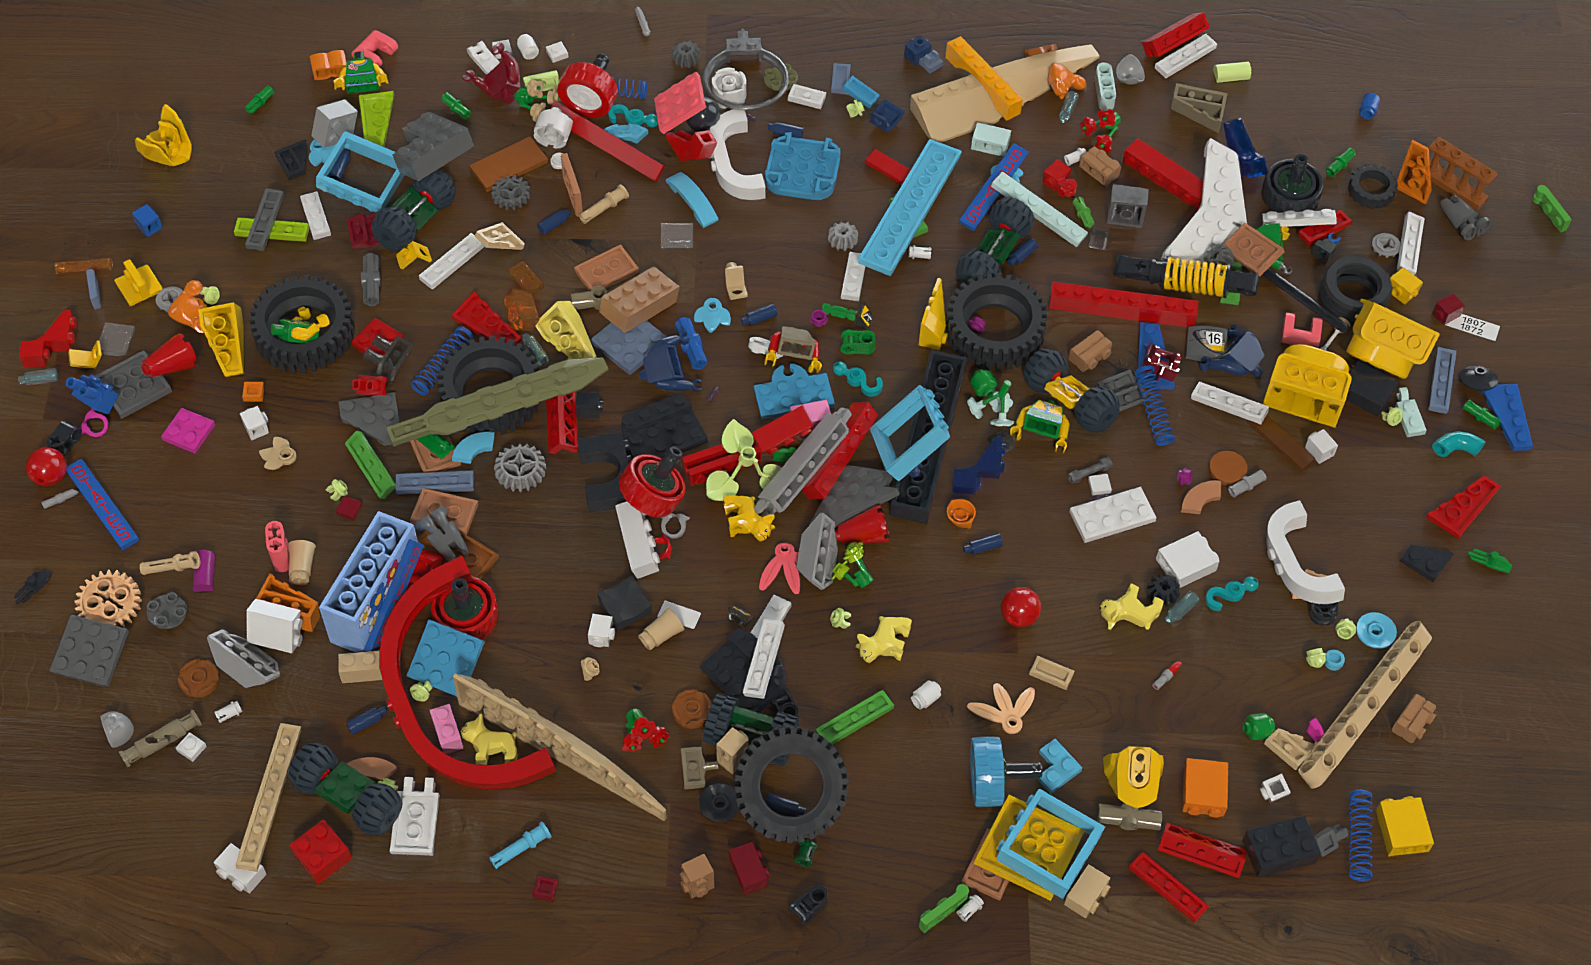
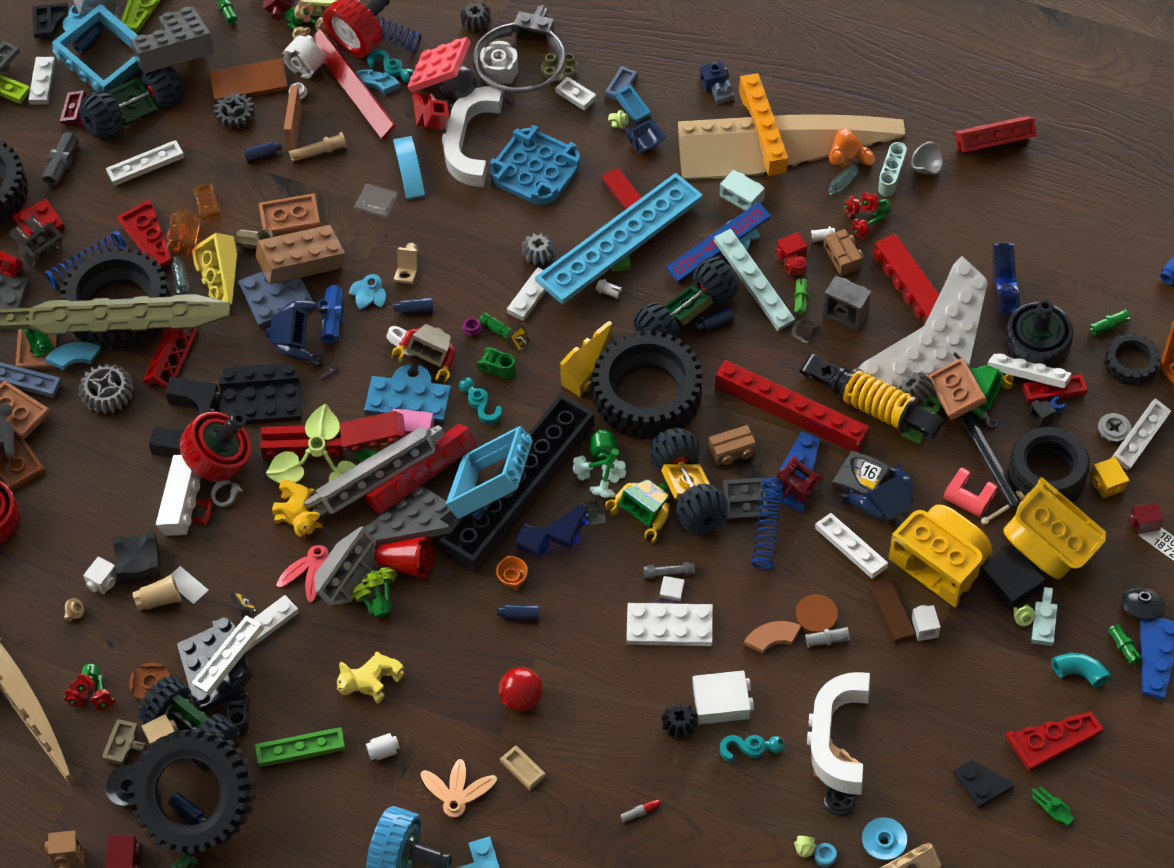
camera: 25 degrees right, 0 degrees up
(411, 252) = (111, 143): yellow bracket -> none
(499, 237) = (200, 152): tan wing -> none
(589, 405) = (201, 346): black brick -> none
(782, 128) = (532, 119): dark blue cylinder -> none
(837, 618) = (335, 638): yellowish green plate -> none
(977, 324) = (629, 381): magenta plate -> none
(1040, 50) = (840, 111): dark orange tile -> none
(1130, 609) = (634, 729): light yellow animal -> none
(1184, 605) = (691, 745): clear light blue cylinder -> none
(1185, 56) = (997, 159): white plate -> none
(1185, 476) = (765, 609): magenta plate -> none
(1200, 105) = (983, 217): dark tan wedge -> none
(1232, 71) = (1040, 191): yellowish green brick -> none
(1345, 628) = (853, 826): yellowish green plate -> none
(1442, 380) = (1099, 593): sand blue plate -> none

